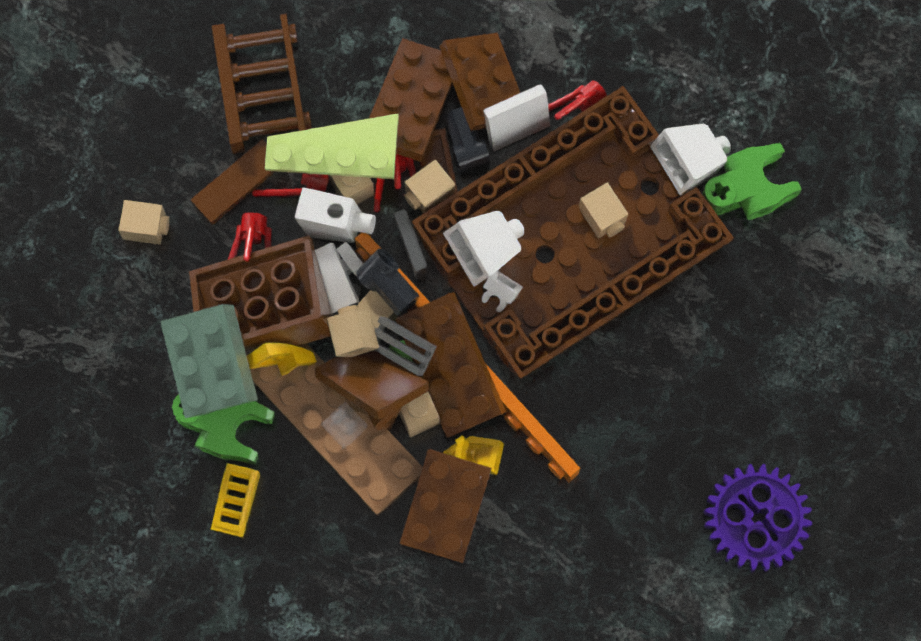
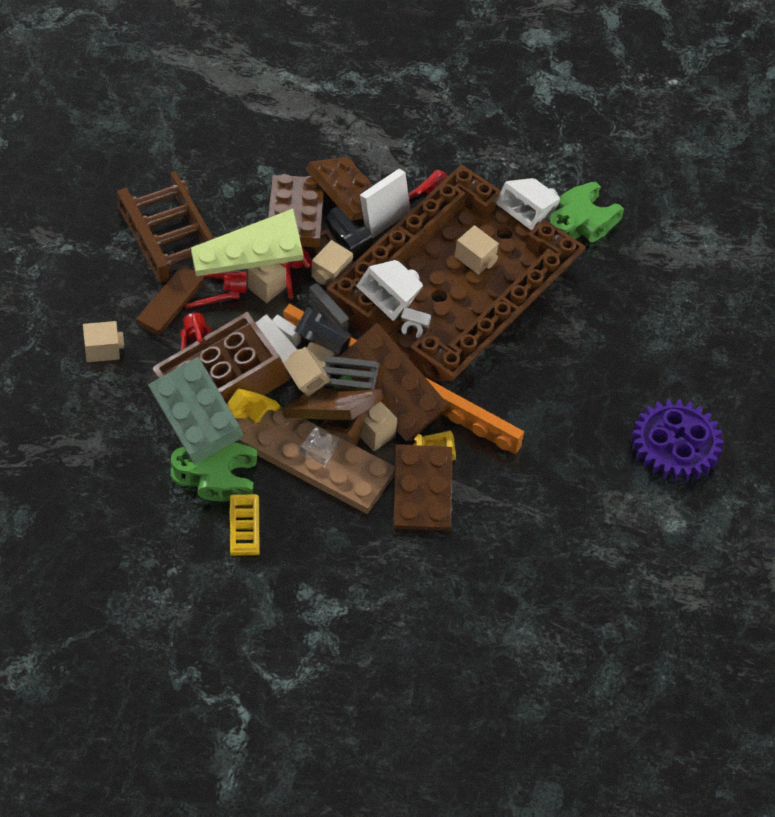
camera: 20 degrees left, 20 degrees down
(332, 216) = (261, 296): white torso -> none

